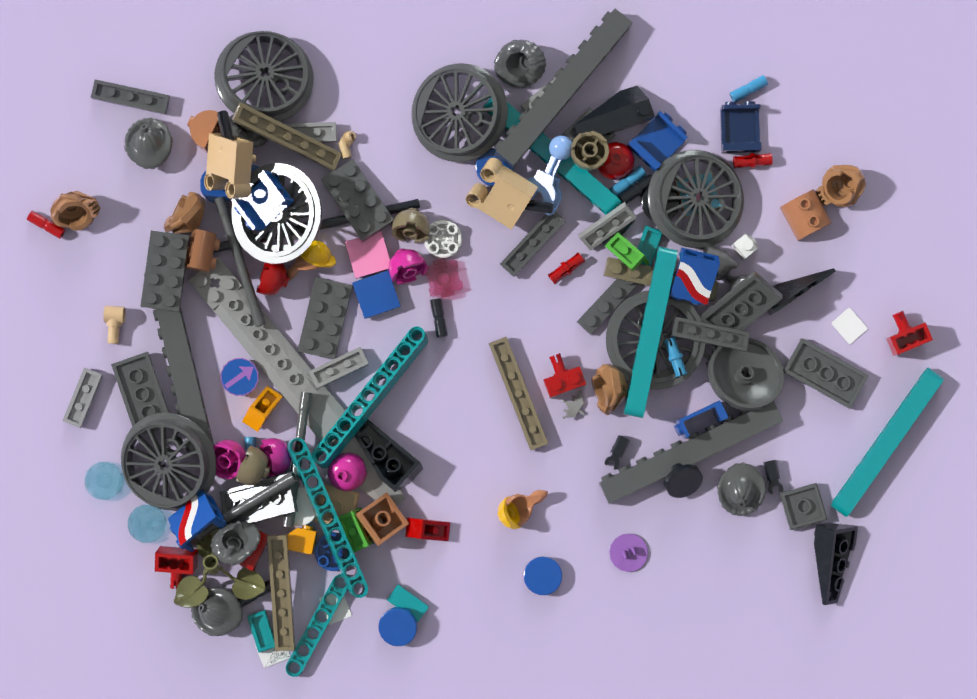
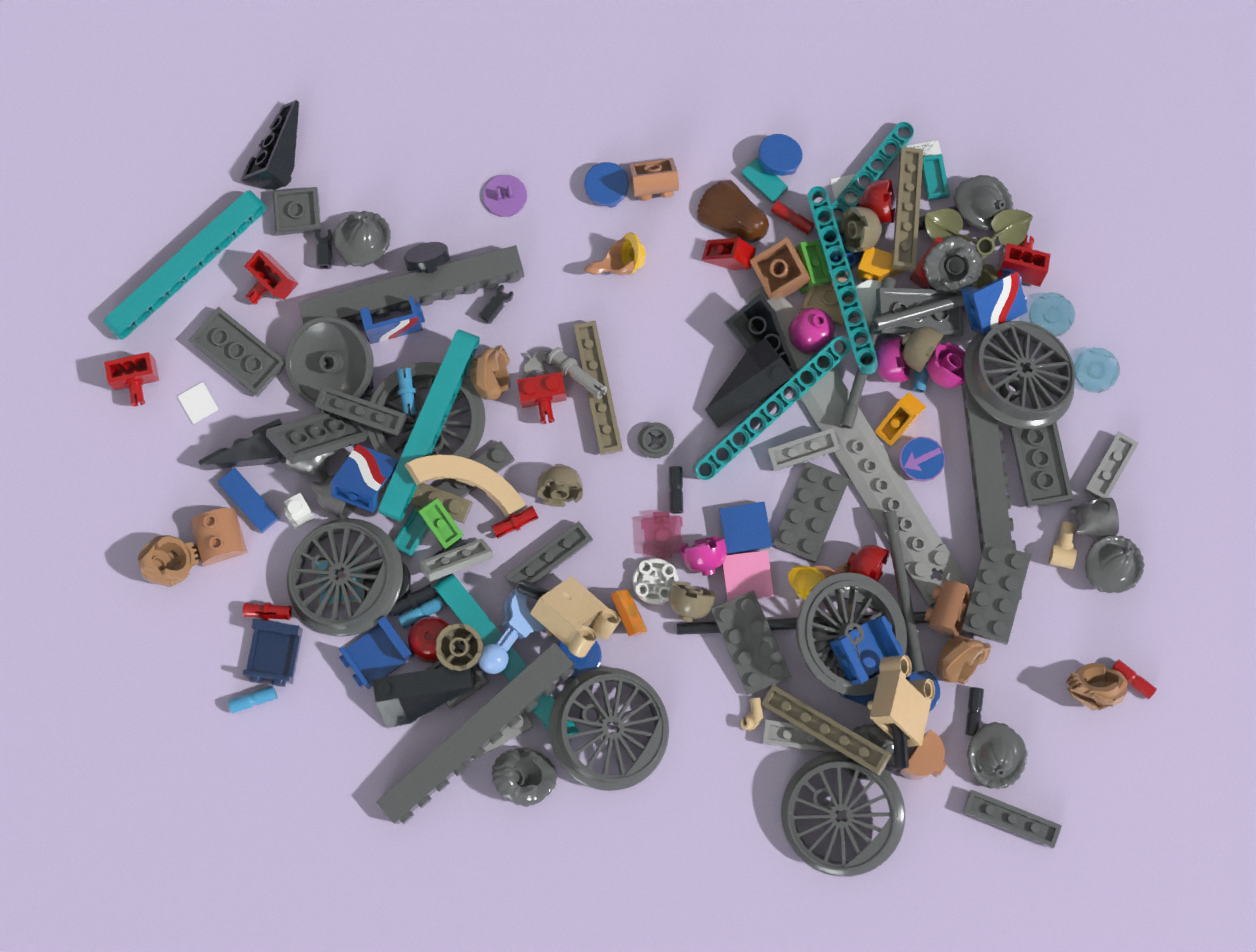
camera: 165 degrees left, 10 degrees down
(71, 314) = (1114, 564): none -> dark grey piece
(91, 349) = (1096, 517): none -> flat silver piece
(170, 180) = (975, 707): none -> black piece
(306, 596) = (879, 198): none -> red cylinder
(318, 565) = (860, 229): none -> dark tan cylinder
(381, 574) = (795, 219): none -> red piece
(388, 419) = (752, 379): none -> black wedge
(431, 569) = (732, 212): none -> reddish brown hair
(453, 357) = (655, 430): none -> dark grey gear
(459, 208) = (628, 612): none -> orange tile
(503, 587) = (654, 178): none -> nougat brick
(535, 303) = (559, 485): none -> dark tan cylinder
(544, 404) = (570, 367): none -> light grey pin
(610, 298) = (468, 472): none -> tan tile
(788, 250) = (248, 500): none -> blue tile
(812, 440) = (270, 277): none -> red brick

